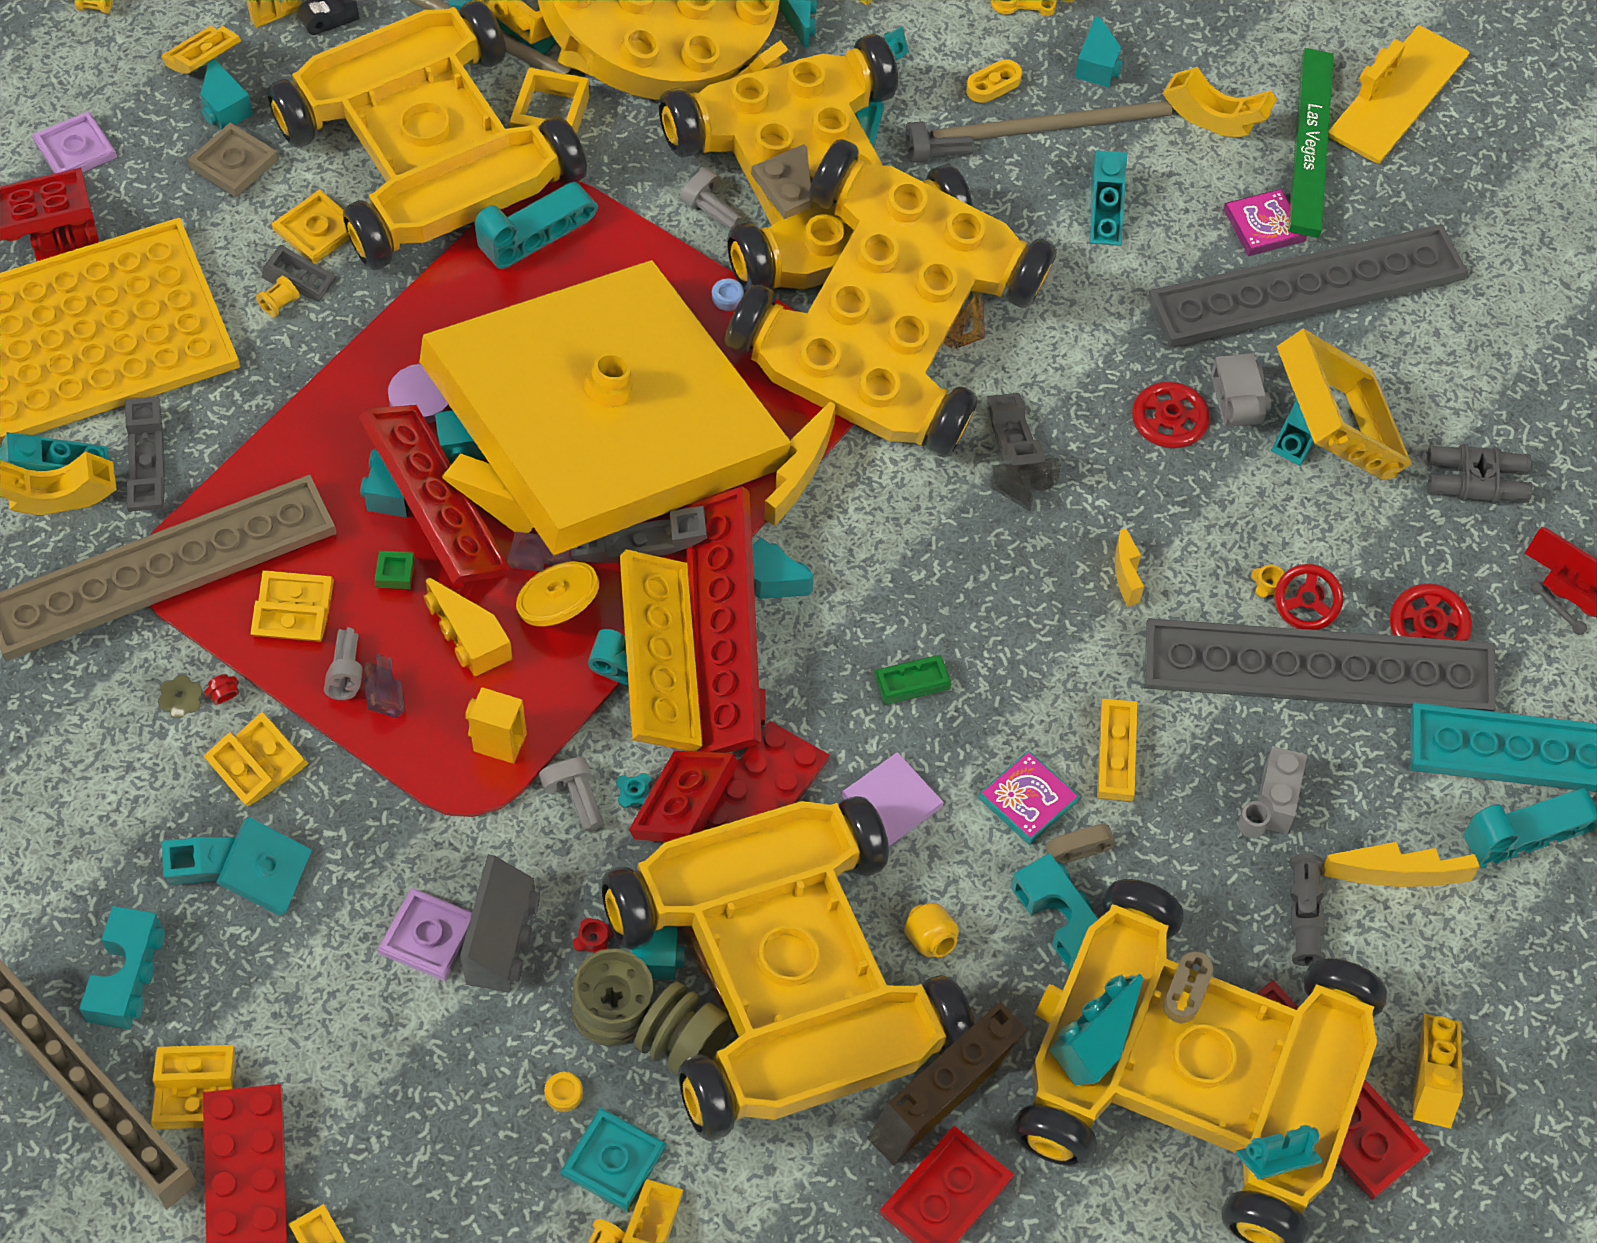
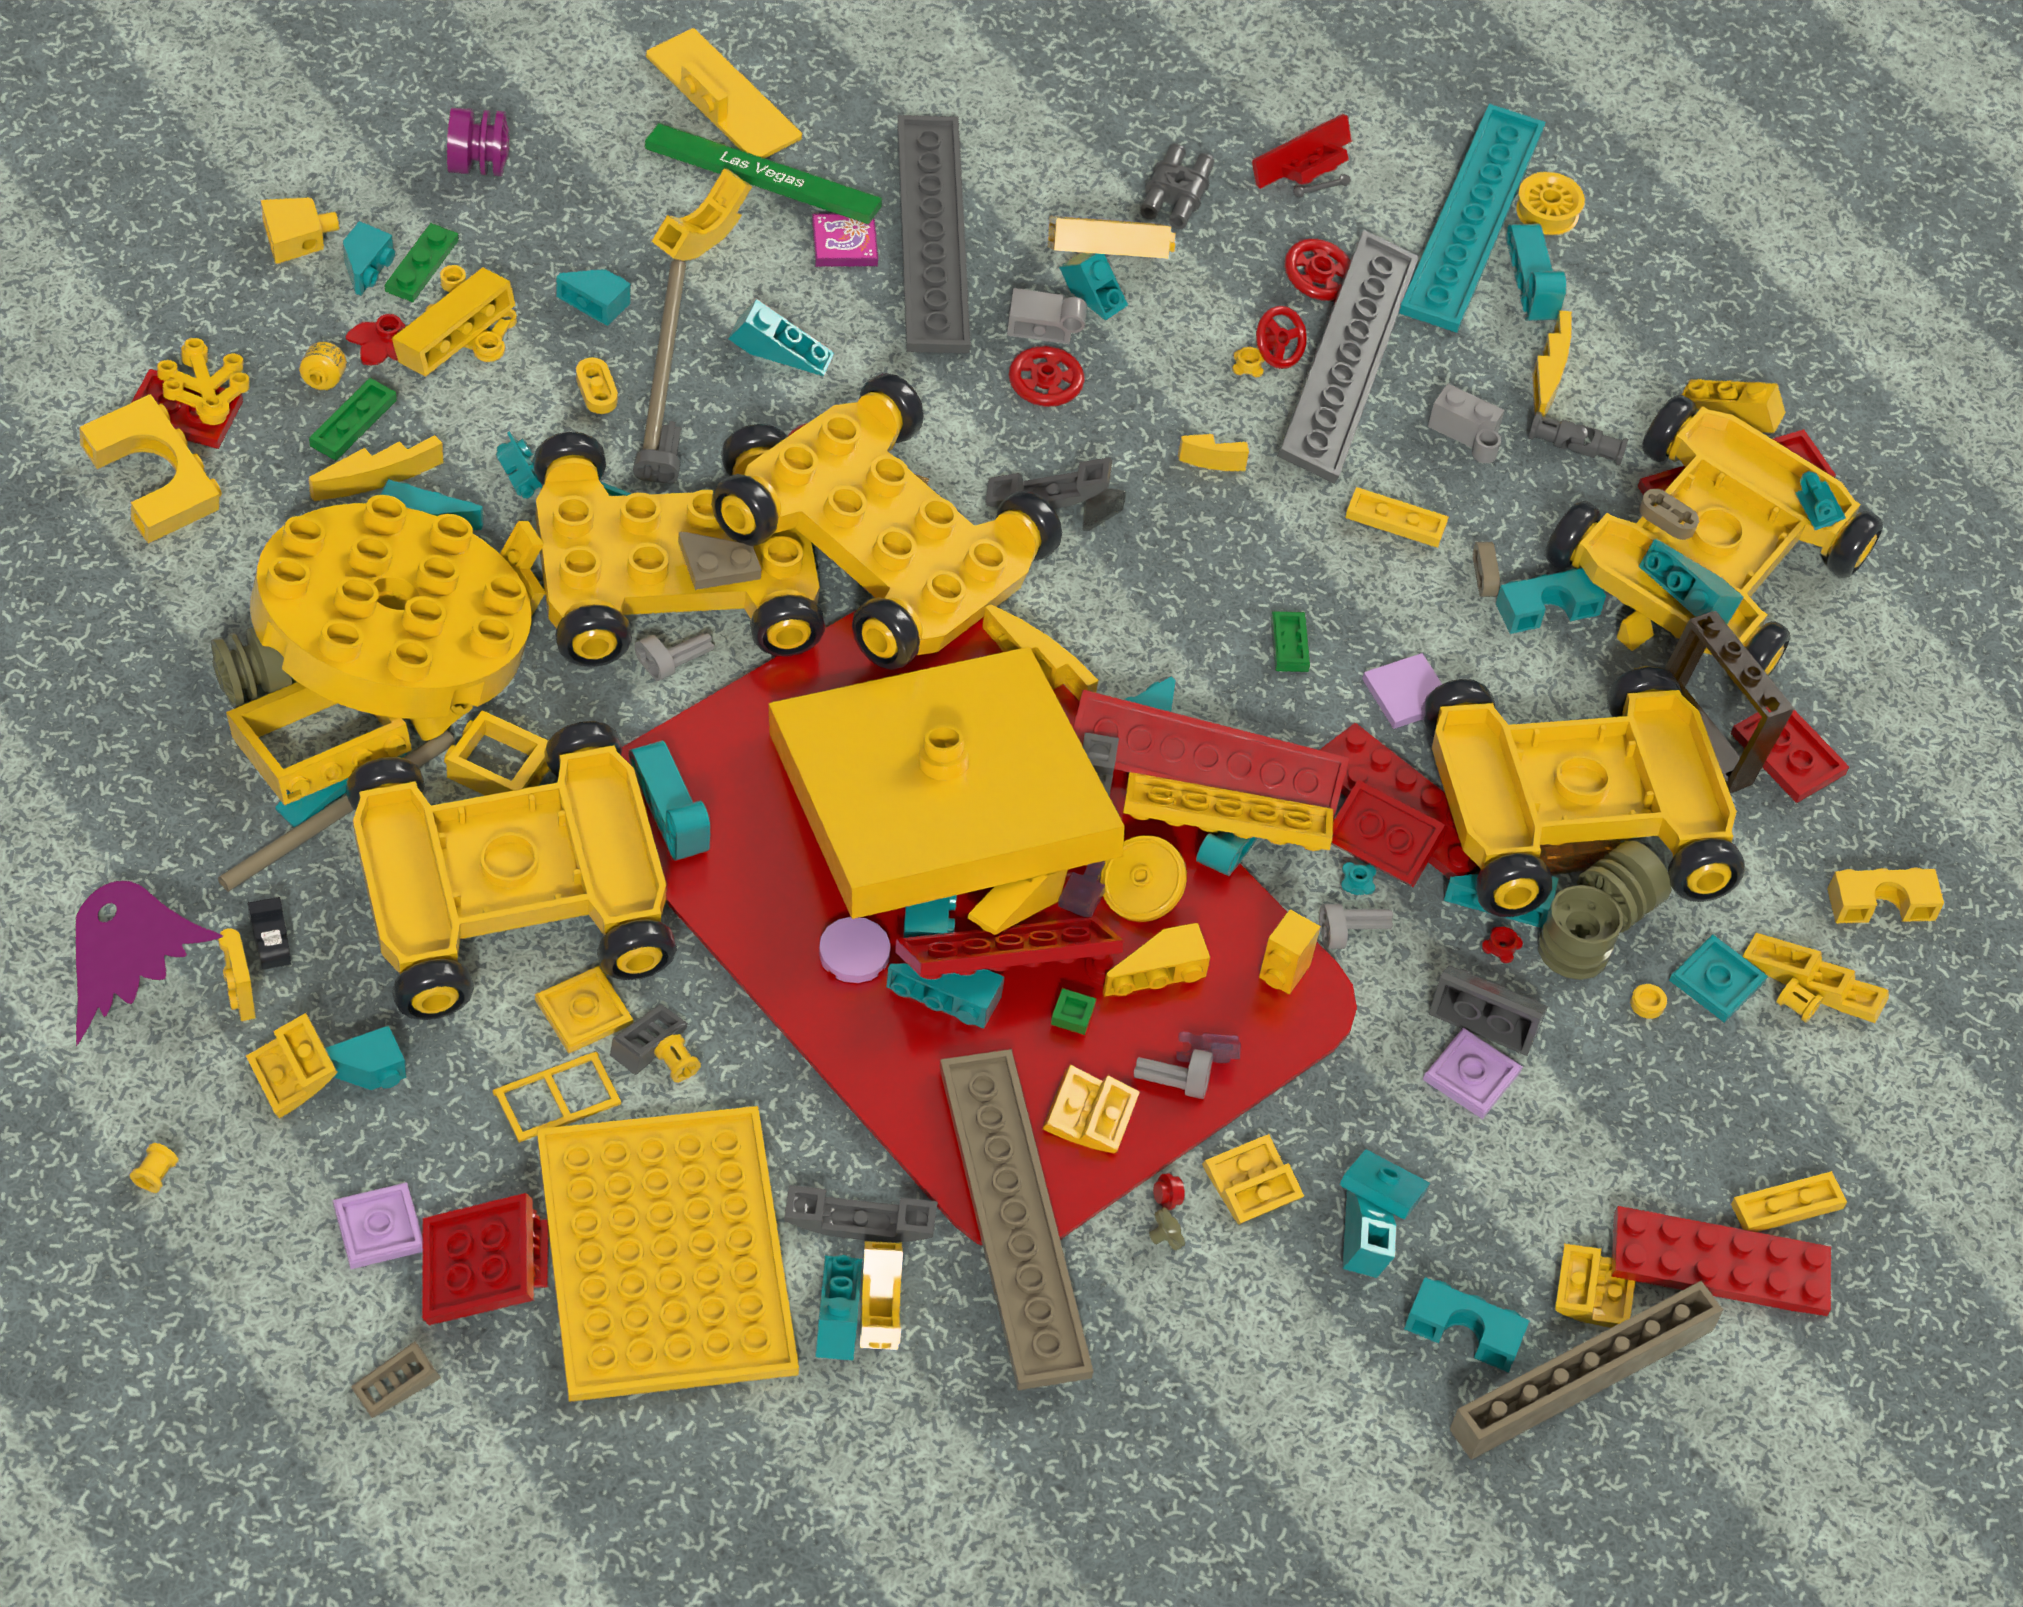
camera: 80 degrees left, 5 degrees down
(207, 242) = (567, 1116): none -> yellow window
(233, 159) = (463, 1067): dark tan plate -> none
(727, 294) = (806, 666): light blue tile -> none
(931, 930) = (1549, 693): yellow head -> none
(1028, 797) = (1427, 594): tile -> none

